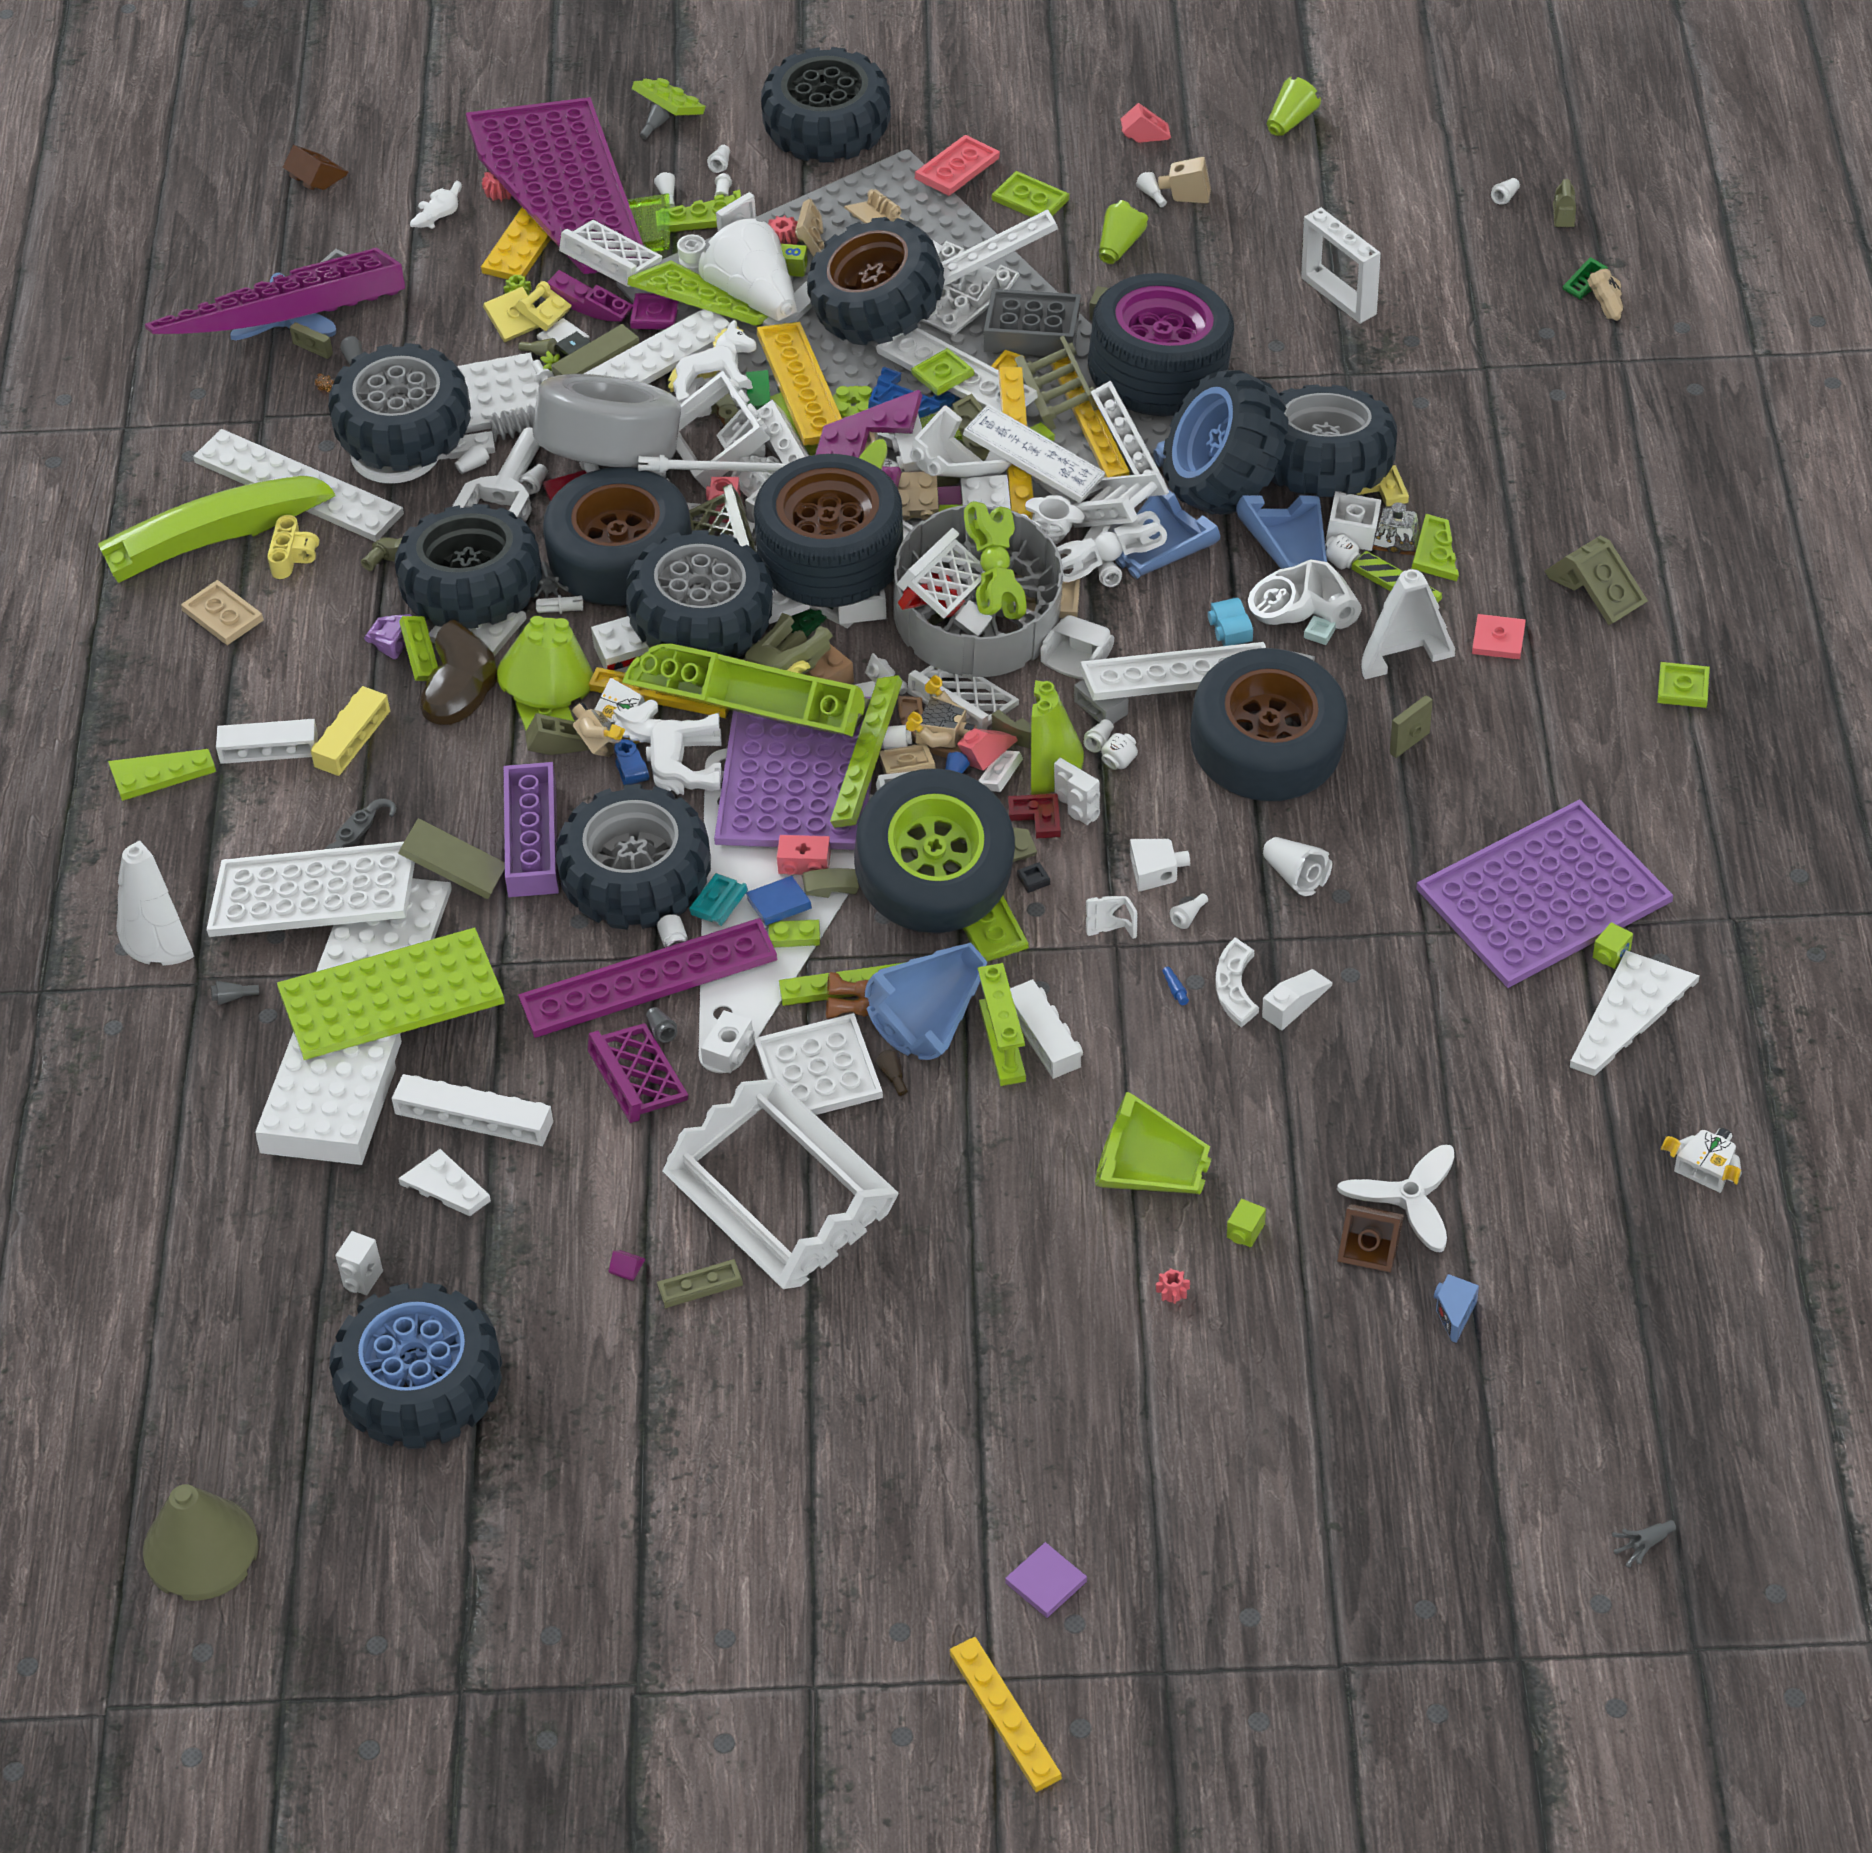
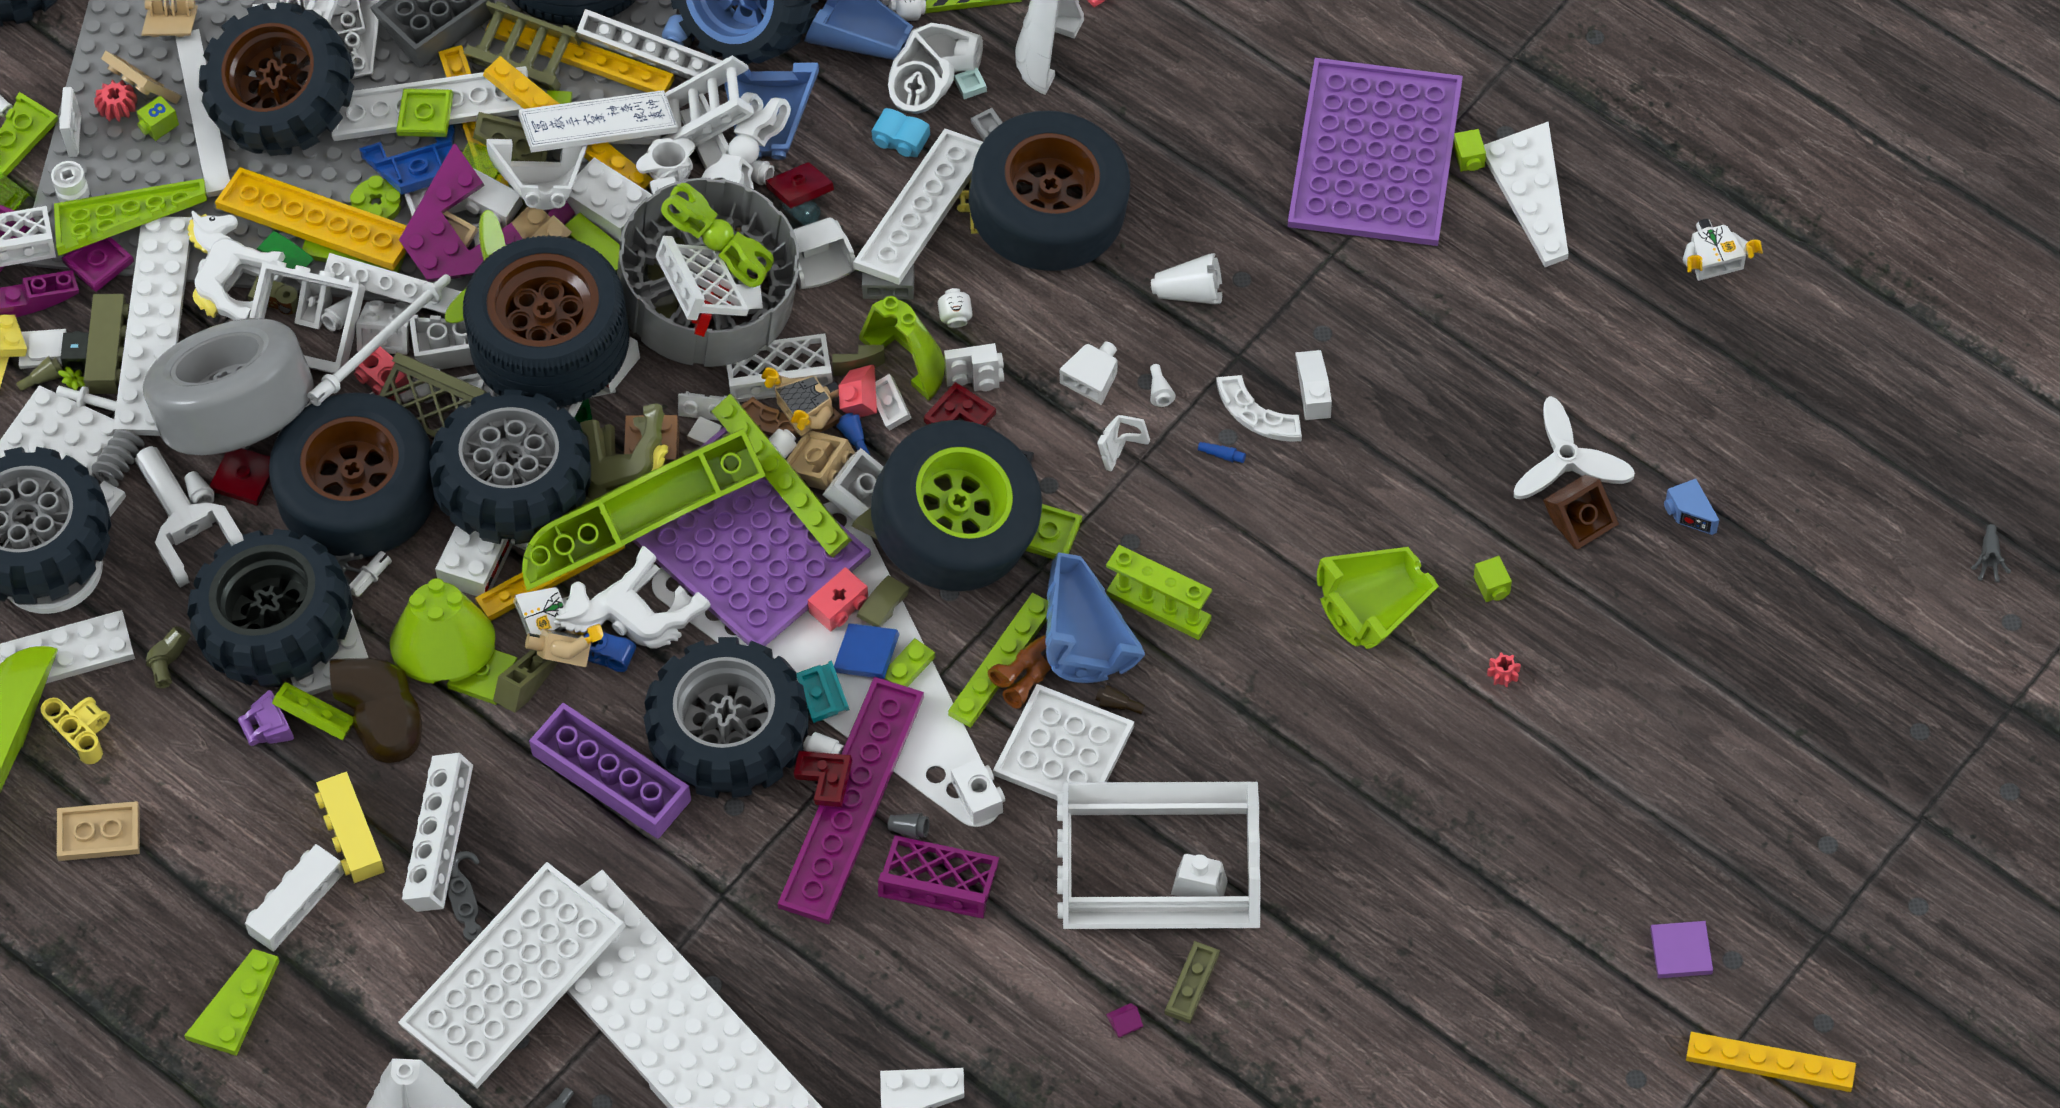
camera: 50 degrees left, 10 degrees up
(390, 775) = (437, 832): none -> white brick
(390, 993) = (695, 994): lime plate -> none
(452, 858) = (589, 848): olive tile -> none
(472, 458) = (122, 517): white cone -> none
(472, 1109) = (864, 1019): white brick -> none
(649, 945) = (830, 772): none -> dark red plate
(750, 266) = (151, 155): white cone -> none
(780, 1215) = (1199, 877): none -> white torso
(1045, 1030) = (1206, 569): white brick -> none
(1098, 735) = (923, 308): white cone -> none
(1105, 615) = (805, 213): none -> clear light blue cone
(1121, 599) = (799, 185): none -> dark red plate
(1411, 726) = (1140, 103): olive plate -> none

